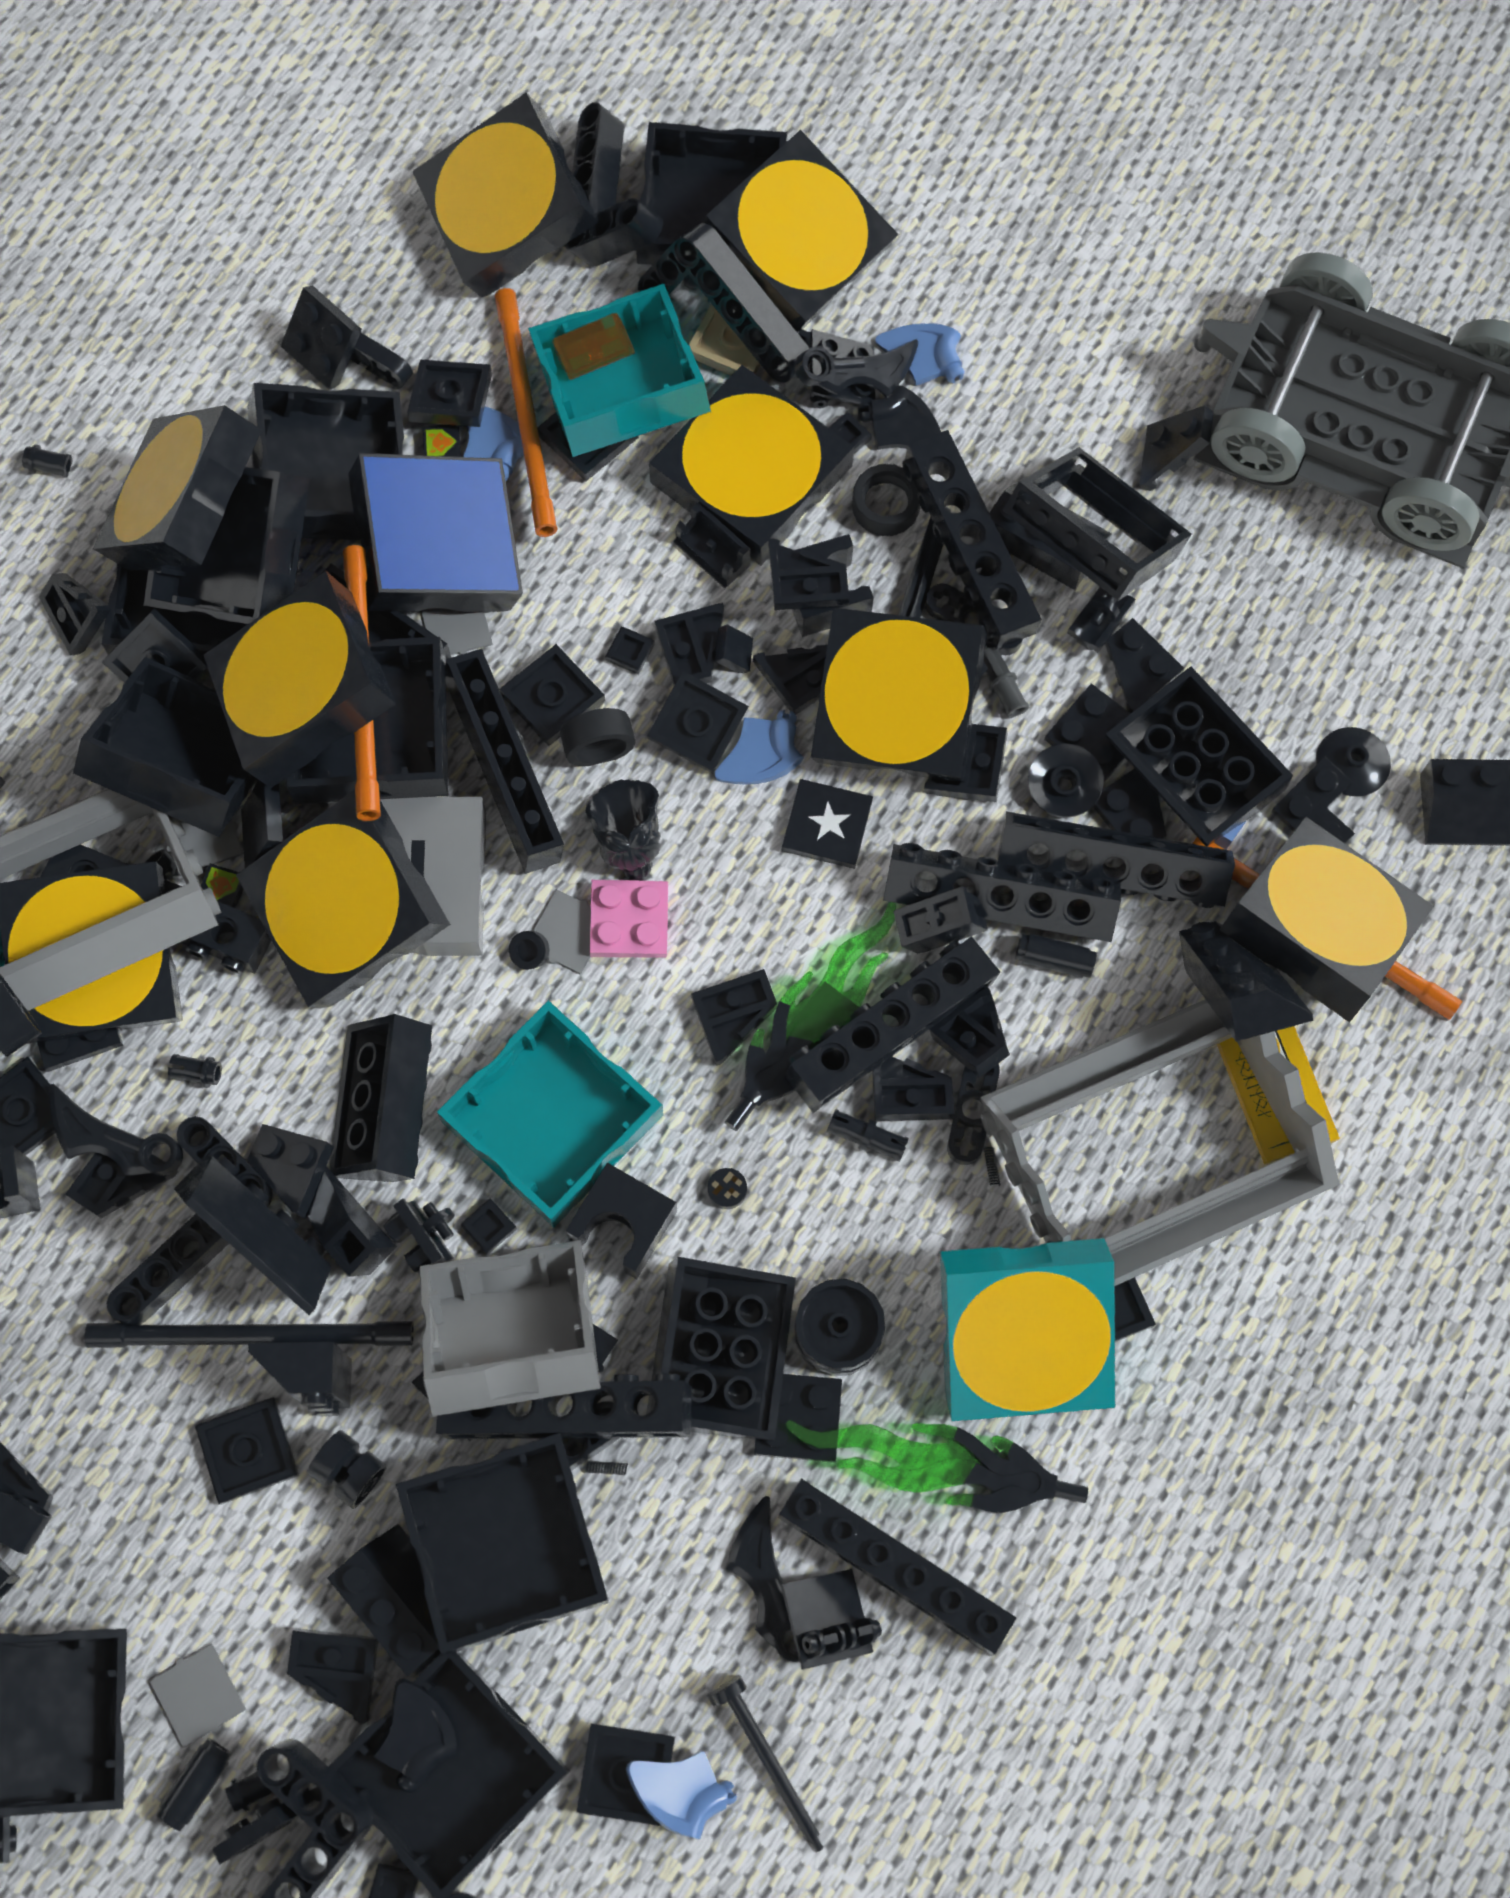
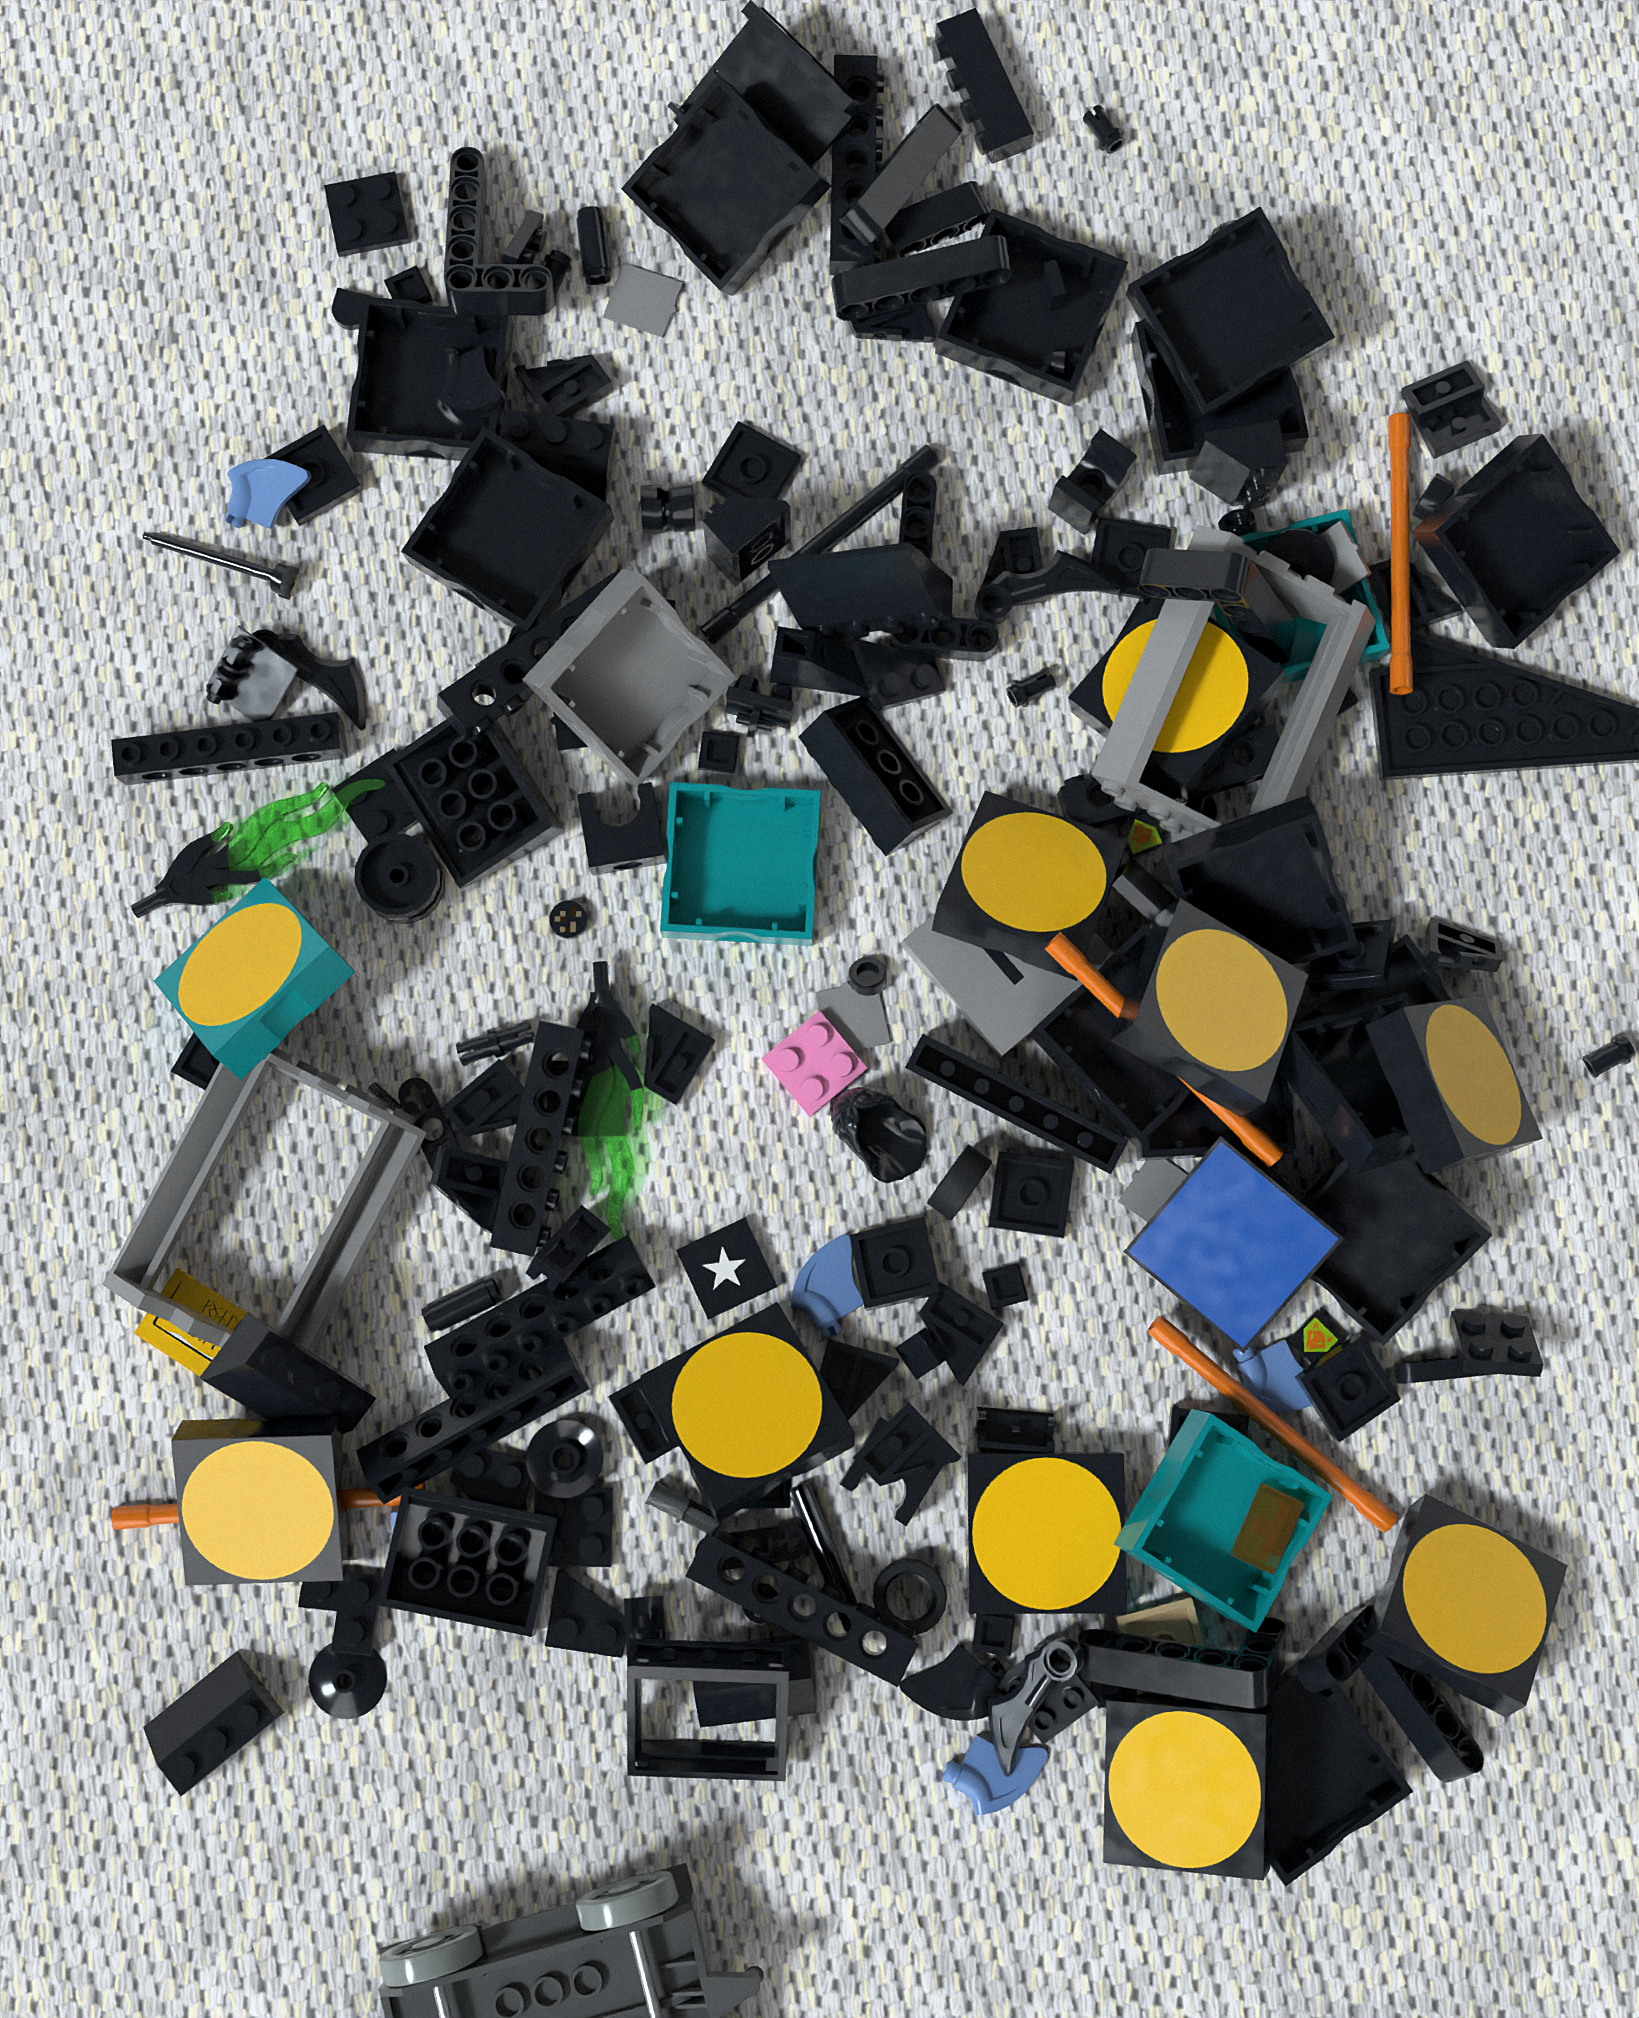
camera: 140 degrees right, 10 degrees up
(1173, 442) = (708, 1853): black wing -> none

